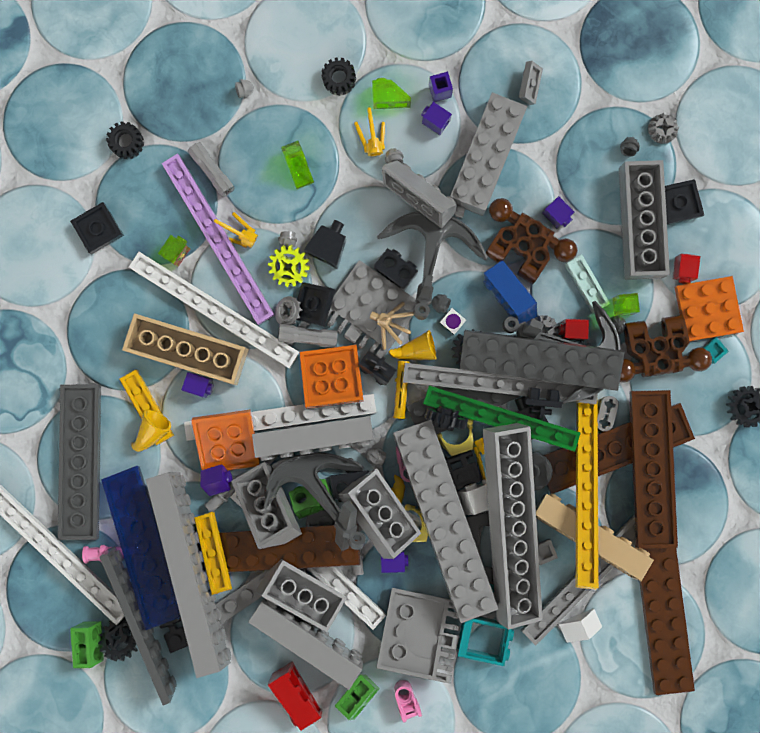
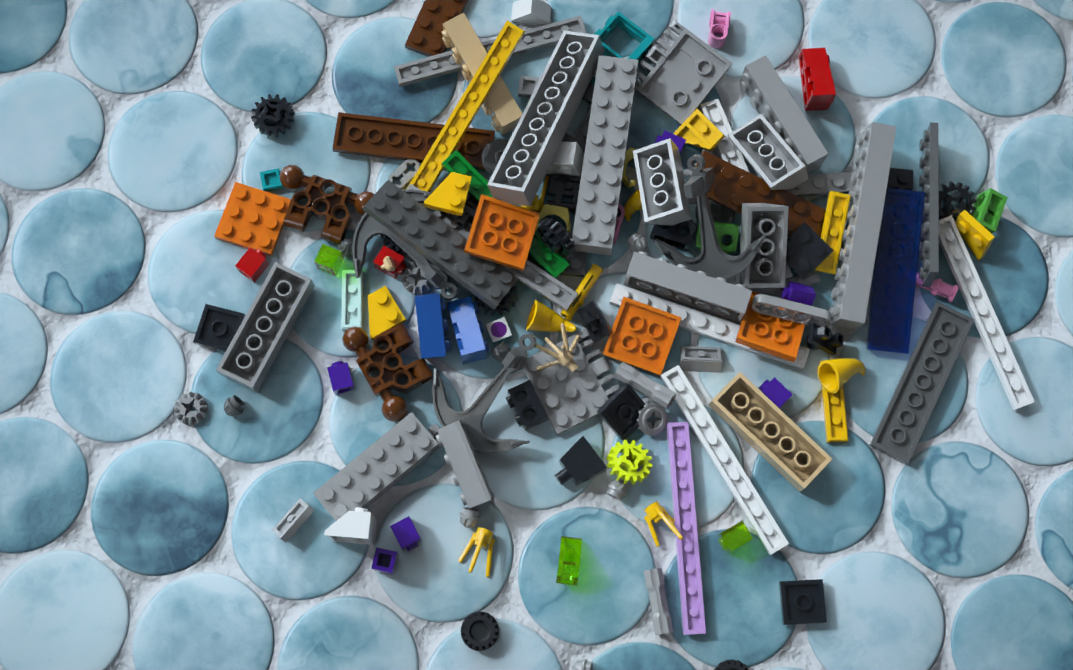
camera: 155 degrees left, 10 degrees down
(88, 617) = (974, 234): none -> yellow wing
(177, 453) = (823, 339): none -> black hips
(214, 461) = (769, 306): none -> light grey beam
(227, 523) = (806, 250): none -> black plate
(274, 386) = (700, 359): none -> light grey slope
(357, 697) = (769, 46): bright green brick -> none
(373, 588) = (700, 131): none -> yellow wing
(389, 95) = (441, 584): clear neon green slope -> none
(476, 91) = (354, 527): none -> white slope
(478, 305) = (467, 330): none -> wedge
(494, 396) = (501, 232): none -> orange plate
(555, 286) = (383, 312): none -> yellow wing
(557, 406) = (450, 194): none -> yellow wing
(574, 323) = (388, 264): none -> tan rock
(653, 469) = (391, 105): reddish brown plate -> none

